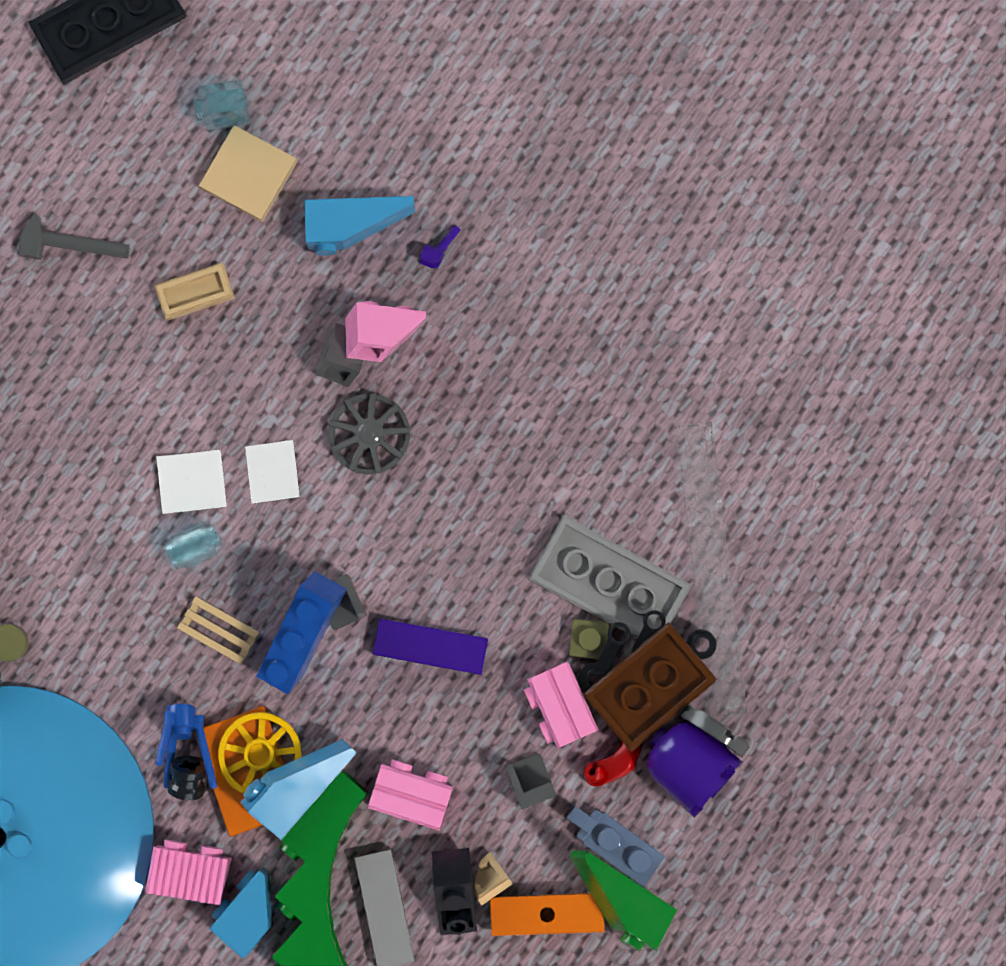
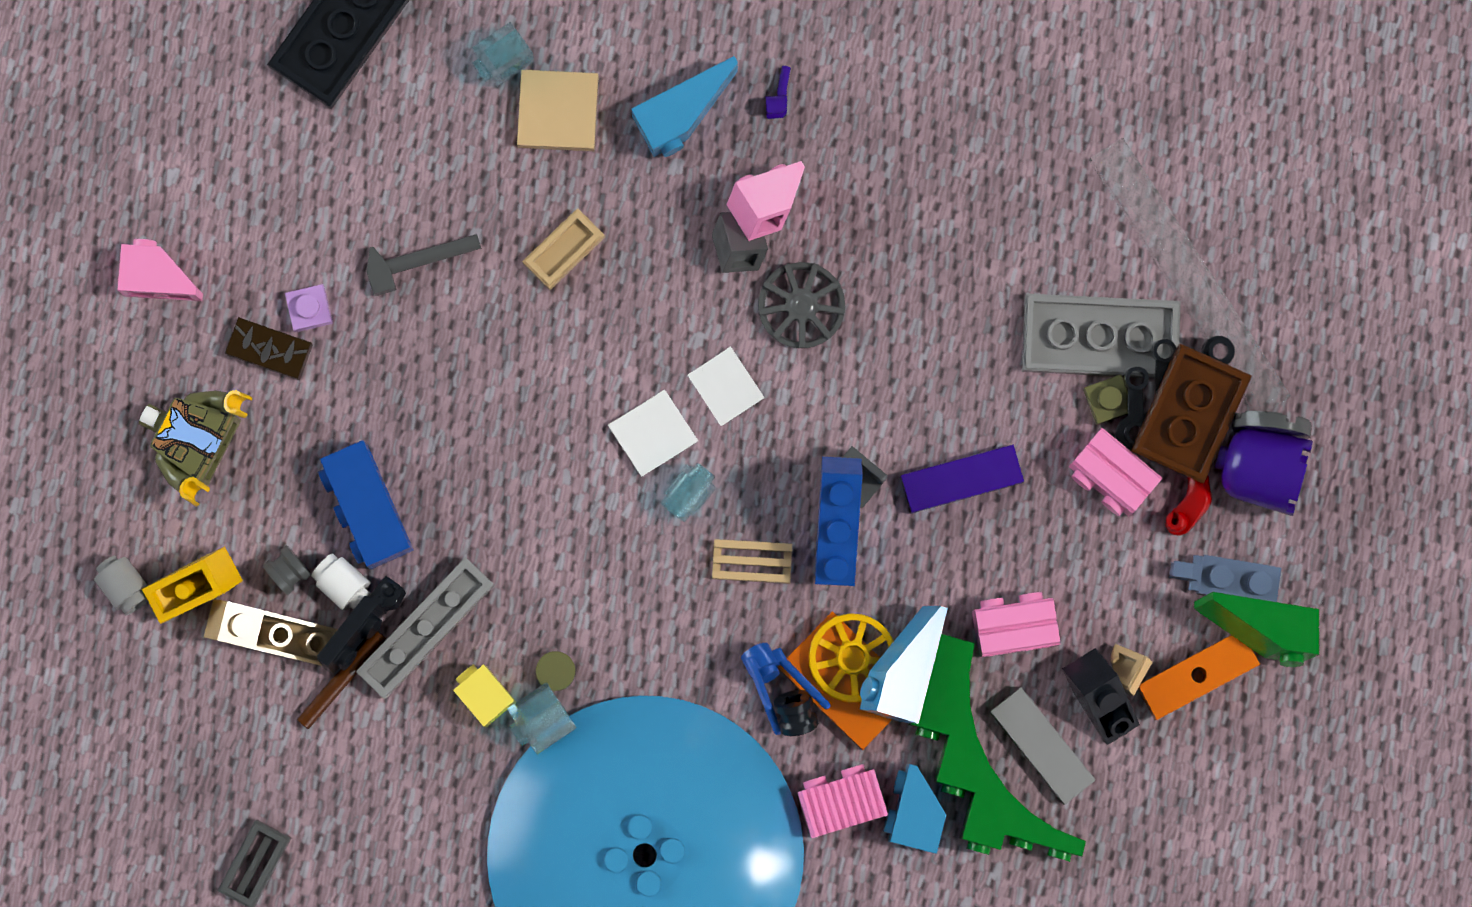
camera: 30 degrees left, 0 degrees up
(530, 781) = (1120, 559): dark grey panel -> none

